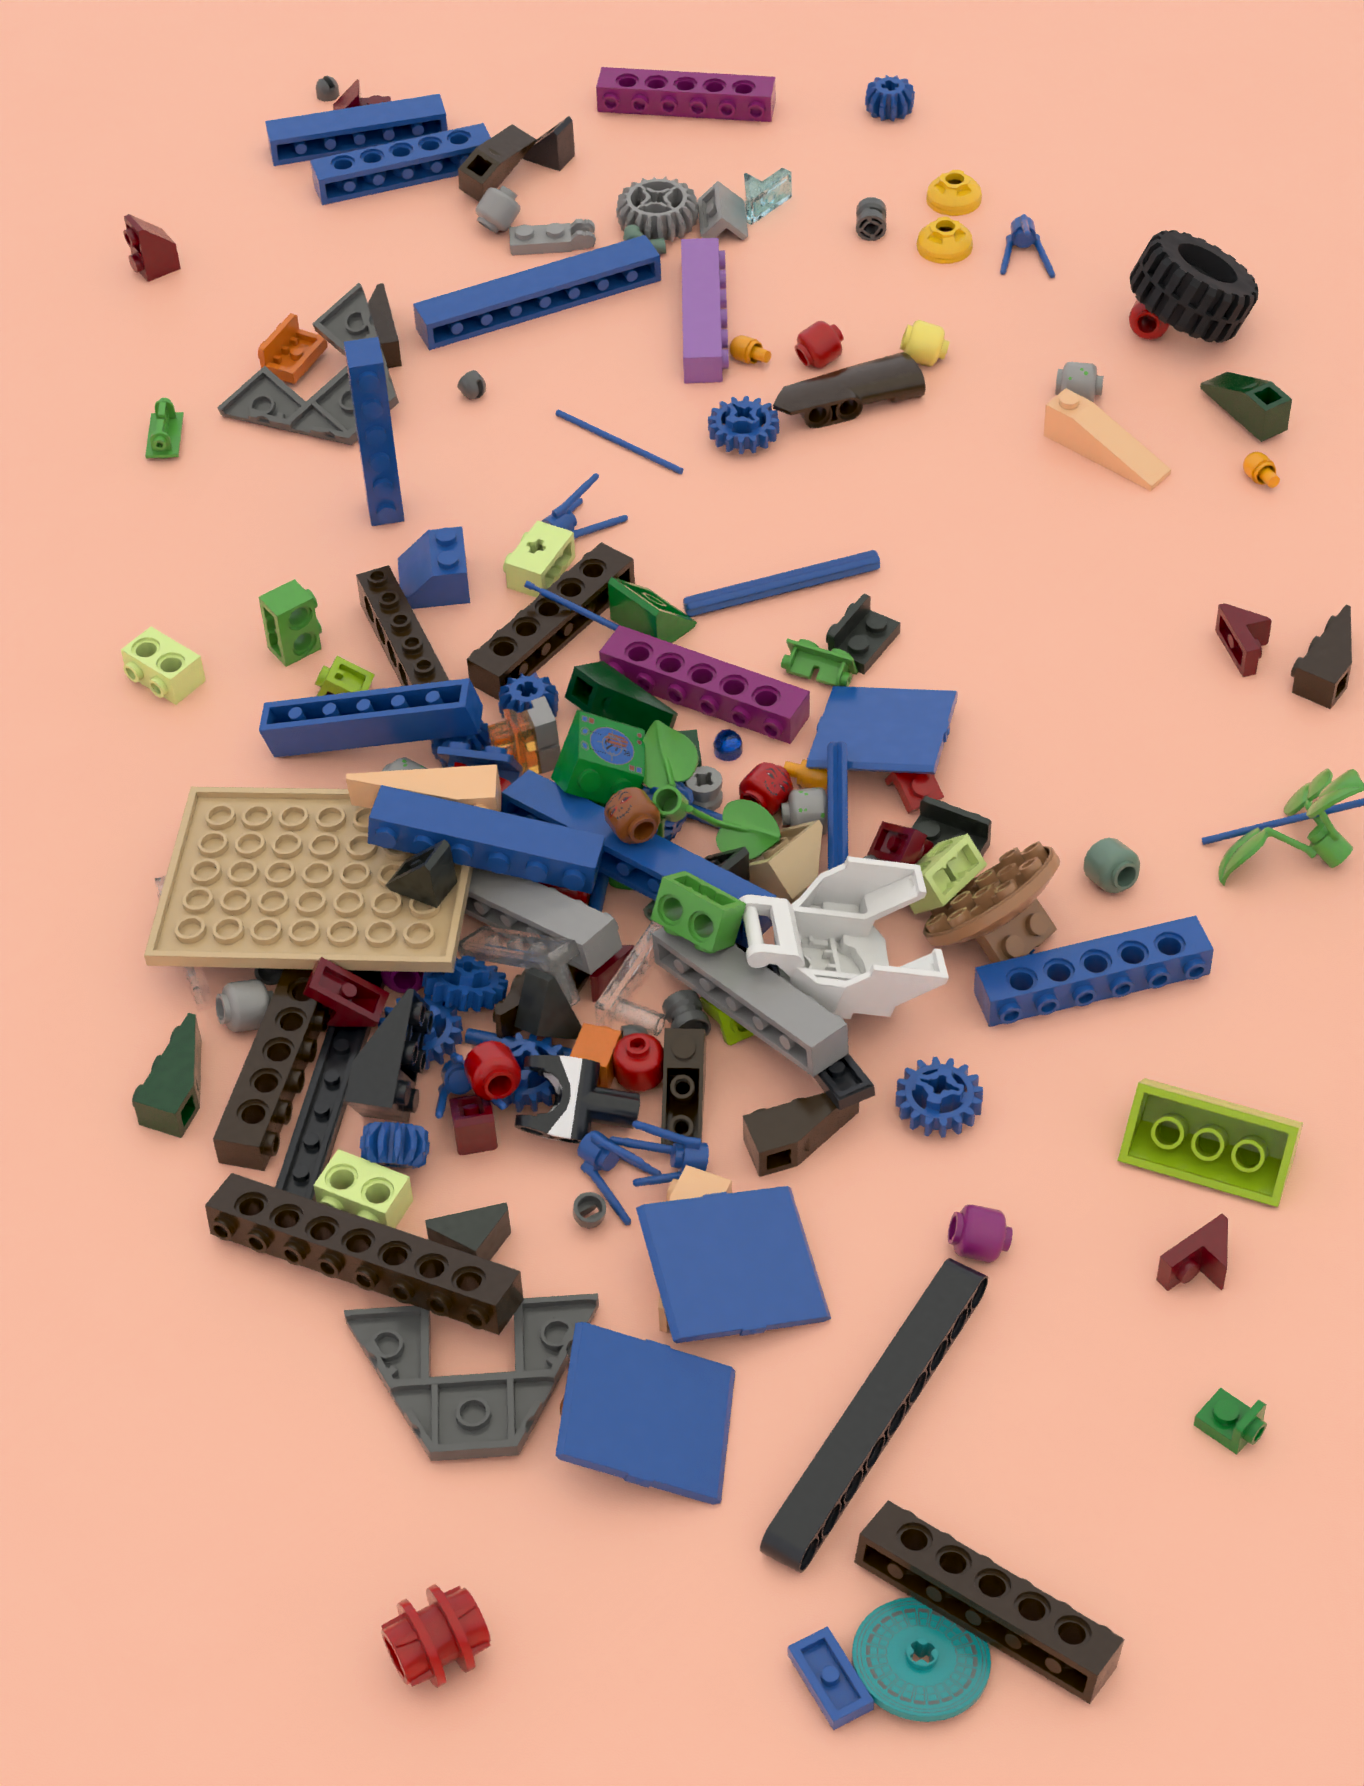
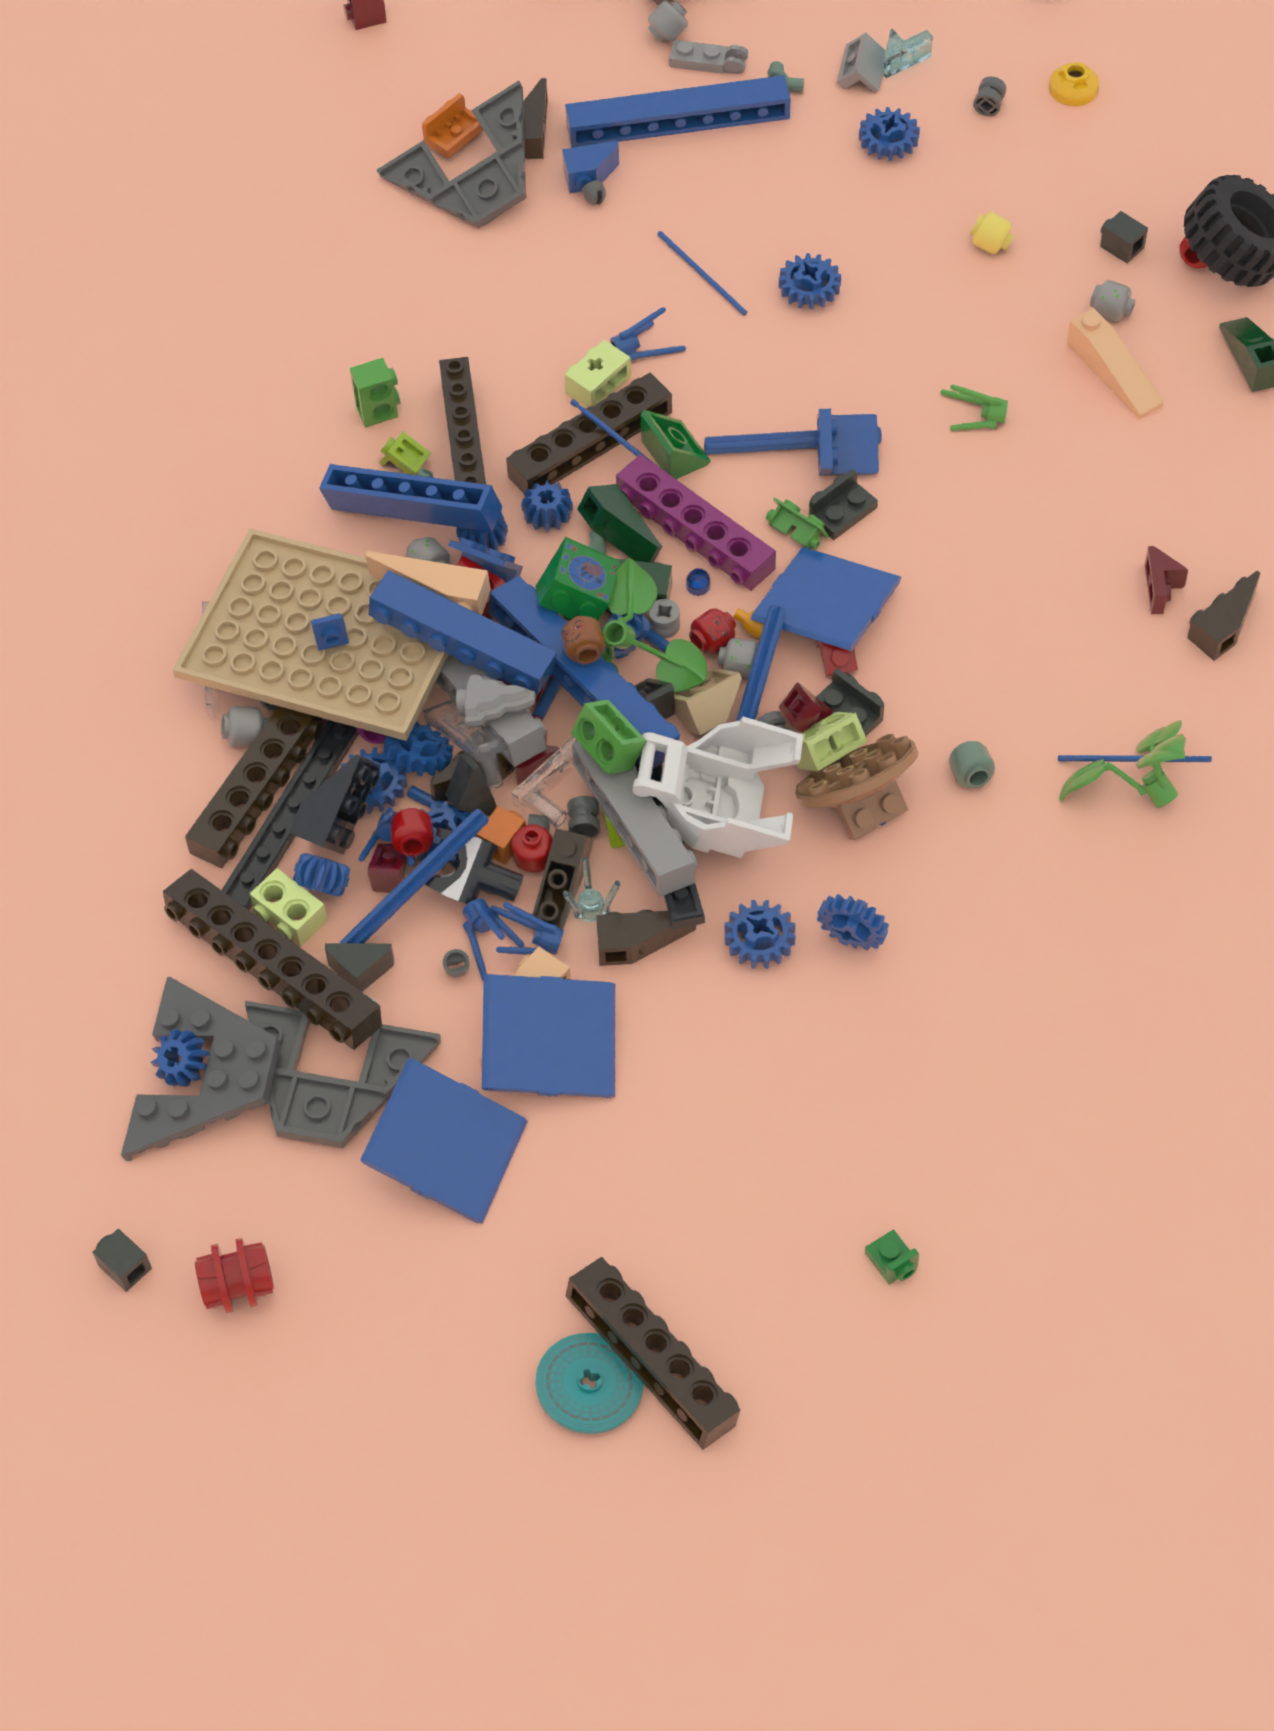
camera: 15 degrees right, 10 degrees up
(163, 665) = (264, 407): yellowish green brick -> none
(164, 431) = (327, 183): bright green hinge -> none
(172, 1089) = (171, 782): dark green slope -> none
(280, 1655) = (121, 1259): none -> pearl dark grey brick
(283, 1411) = (168, 1061): none -> blue gear
(326, 870) = (329, 631): none -> blue bracket
(349, 996) = (321, 739): dark red slope -> none
(361, 1403) = (235, 1077): none -> dark grey wing
(374, 430) = (482, 235): blue brick -> none
(426, 875) = (405, 655): pearl dark grey slope -> none
(435, 569) = (509, 366): blue slope -> none
(455, 357) = (589, 164): none -> blue slope
(517, 1119) = (417, 878): none -> blue axle
(530, 736) = (531, 542): hips -> none
(544, 902) = (490, 699): none -> light grey rock
(658, 208) = (807, 48): light grey gear -> none
(702, 310) = (812, 159): medium lavender brick -> none
(727, 1106) = (590, 900): none -> clear light blue plant
(748, 350) = (840, 207): light orange cylinder -> none
(777, 271) = (889, 133): none -> blue gear
(819, 344) = (900, 215): red head -> none
(830, 1678) = (516, 1380): blue plate -> none
(842, 393) = (903, 267): dark brown panel -> none
(845, 571) = (847, 443): none -> blue bracket
(873, 1416) = (620, 1183): black beam -> none
(944, 246) = (1048, 138): yellow piece -> none
(979, 1233) = (750, 1056): magenta head -> none
(991, 508) = (993, 408): none -> bright green plant
(1024, 235) = (1118, 141): blue plant -> none
(1046, 1056) = (852, 922): none -> blue gear
(1065, 321) = (1123, 236): none -> pearl dark grey brick
(1093, 971) = (935, 844): blue brick -> none
(1201, 1251) = (921, 1113): dark red slope -> none
(1210, 1141) = (962, 1023): lime slope -> none
(1261, 469) = (1240, 419): light orange cylinder -> none

